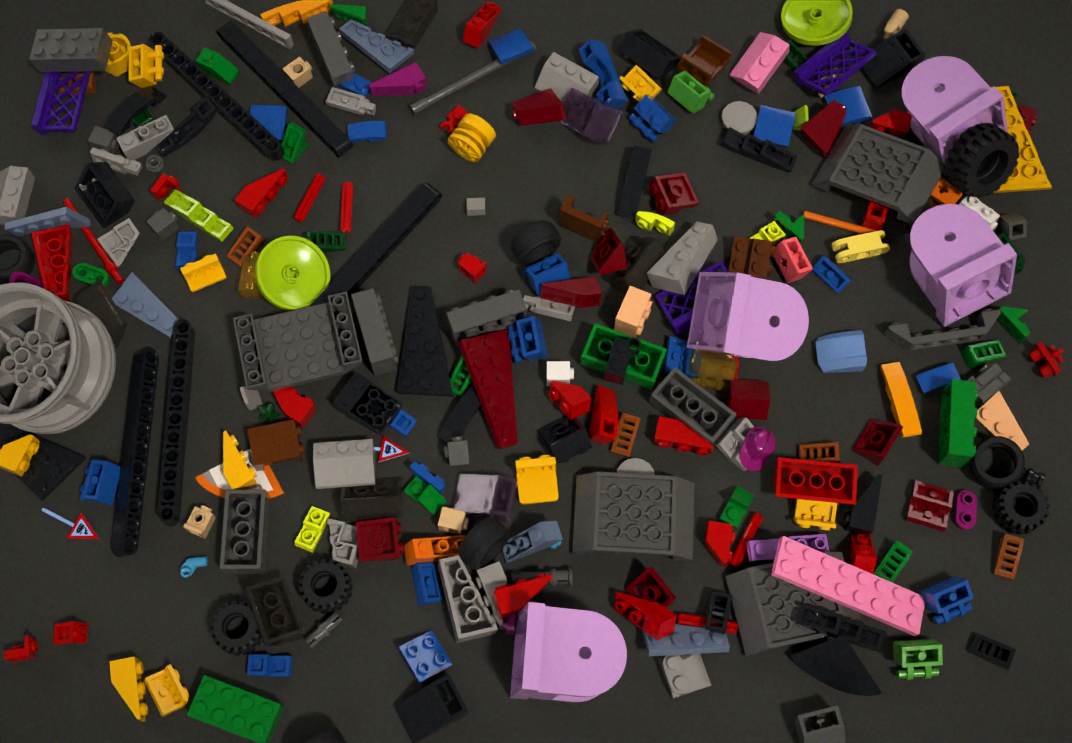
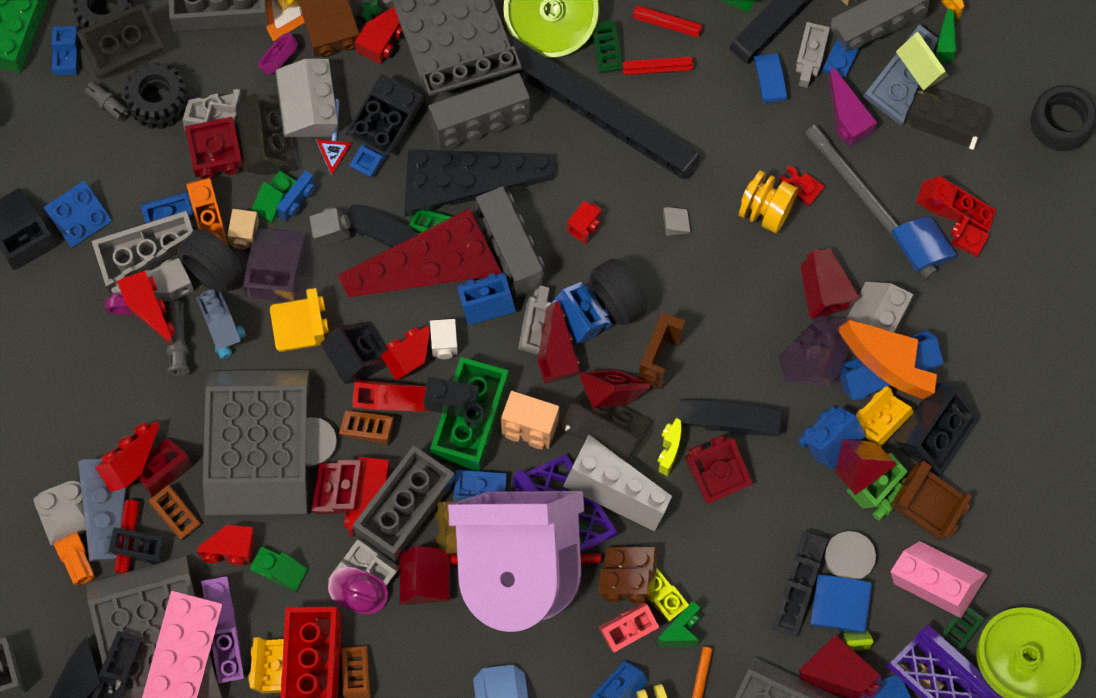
camera: 85 degrees right, 0 degrees up
(299, 487) = (278, 54): none -> magenta plate
(312, 529) = (228, 76): neon yellow slope -> none
(372, 24) = (921, 62): none -> yellowish green slope
(507, 19) = (968, 237): none -> red bracket
(565, 654) = (71, 357): lavender piece -> none
(605, 67) = (889, 357): none -> orange slope
(677, 456) = (337, 487): none -> dark red slope
(678, 590) = (154, 503): none -> dark orange slope
(681, 95) = (861, 464): none -> dark red slope
(722, 665) = (73, 555): none -> orange piece
(747, 536) = (236, 582): red axle -> none

